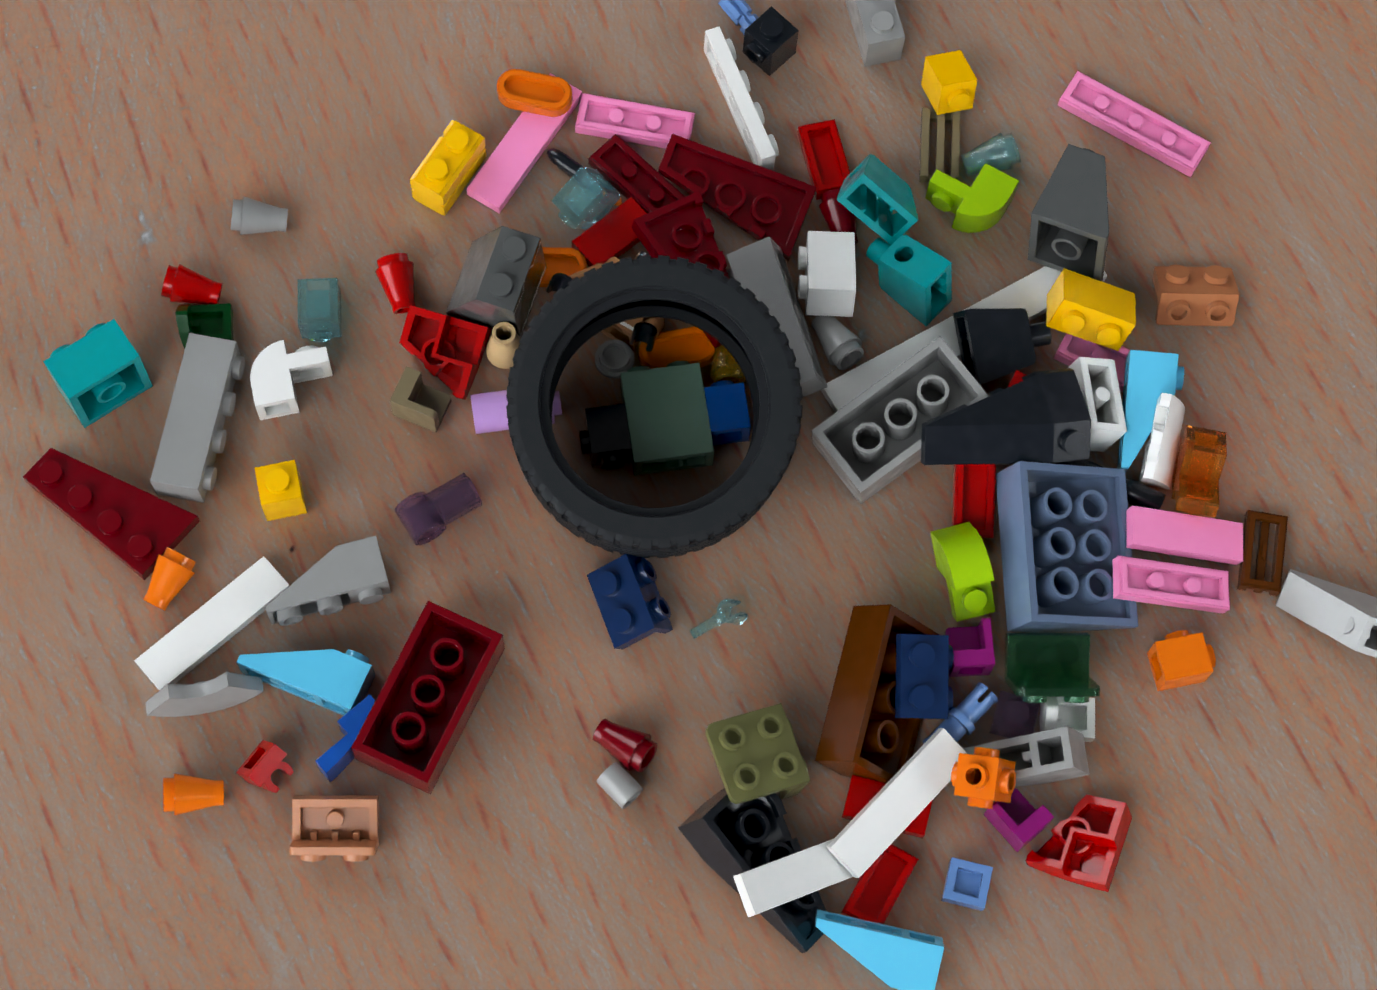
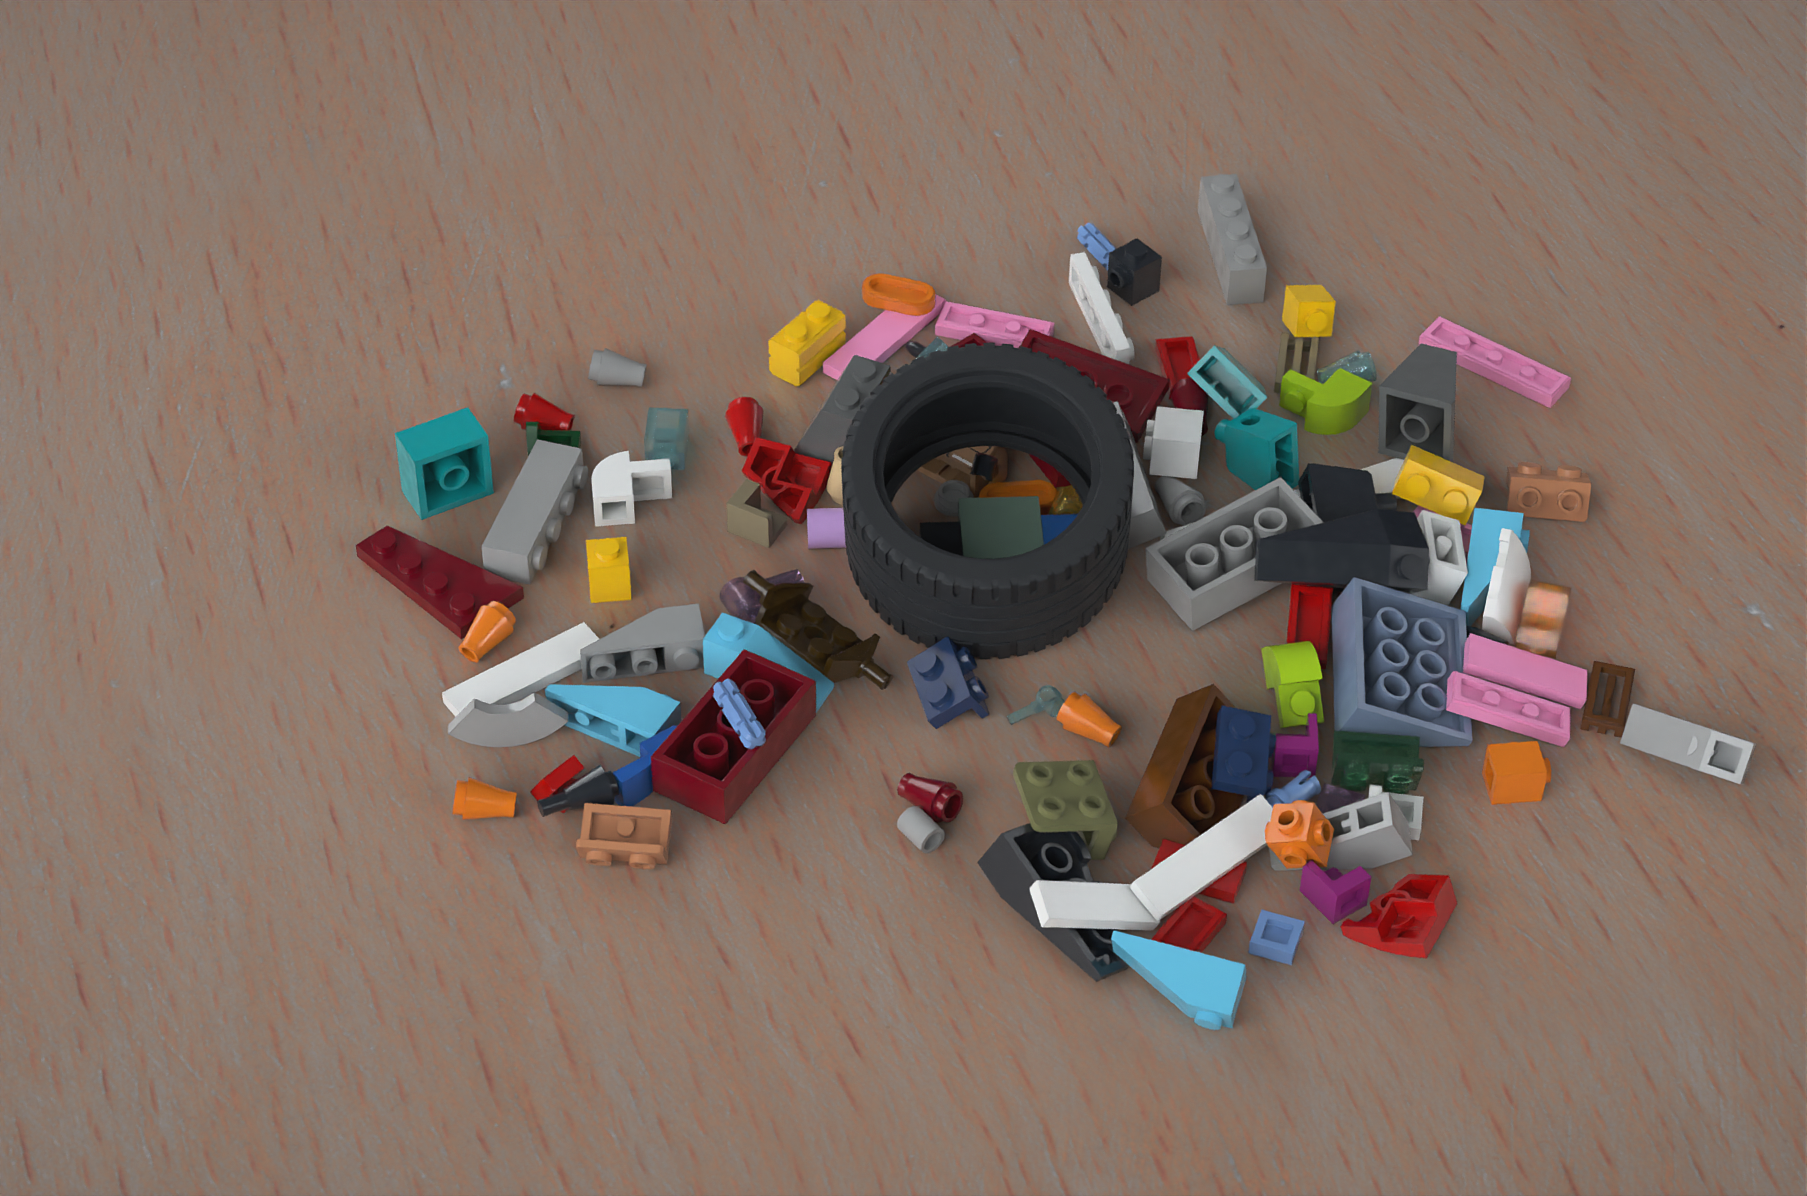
camera: 10 degrees right, 25 degrees down
(293, 779) = (592, 788): none -> black cone
(422, 580) = (732, 635): none -> medium azure slope
(432, 691) = (739, 714): none -> medium blue axle
(473, 532) = (814, 633): none -> dark brown plate
(769, 633) = (1088, 720): none -> orange cone

